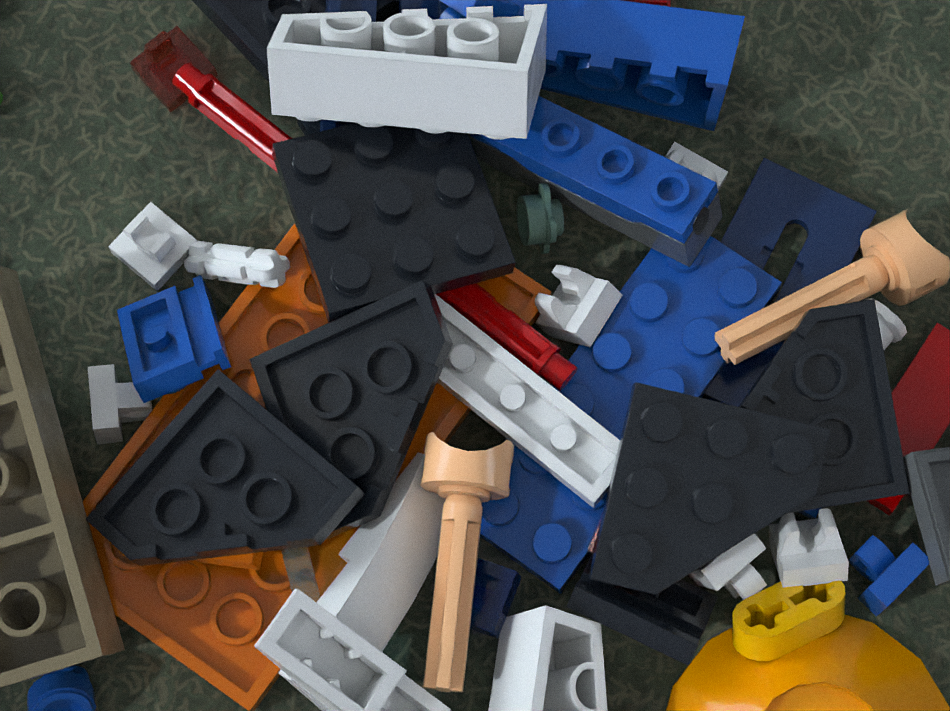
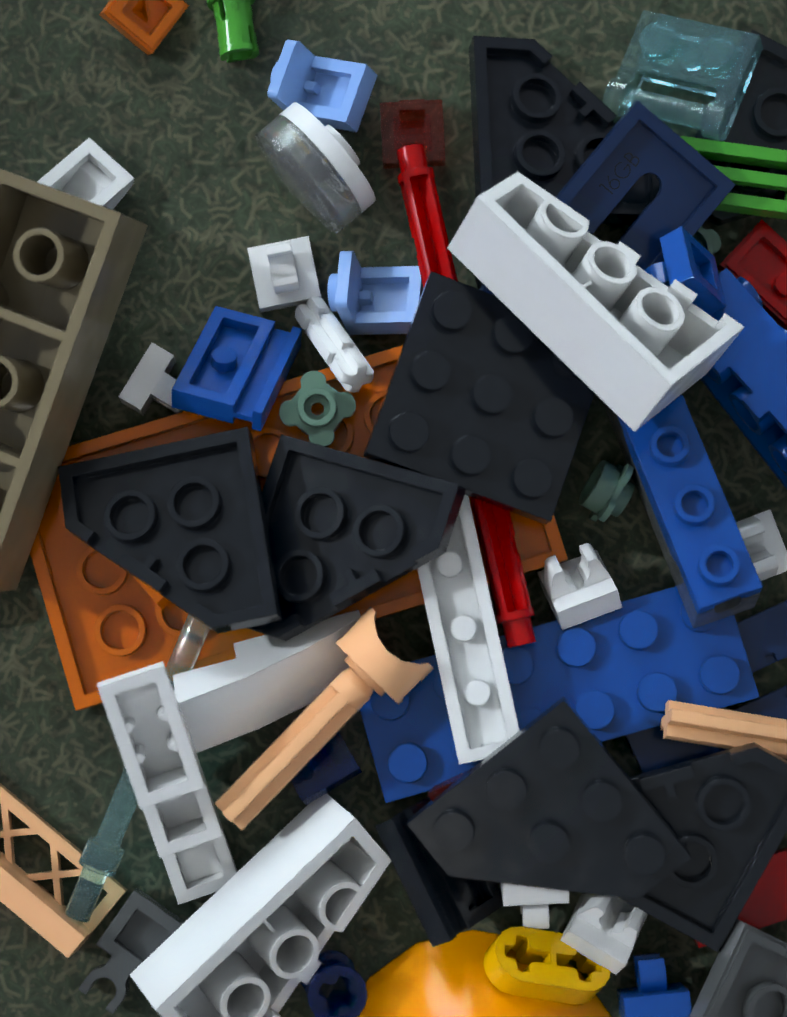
camera: 40 degrees right, 10 degrees up
(74, 84) = (325, 86): none -> light blue bracket
(117, 139) = (316, 167): none -> clear piece
(243, 207) = (374, 297): none -> light blue bracket
(250, 307) = (312, 391): none -> sand green plate

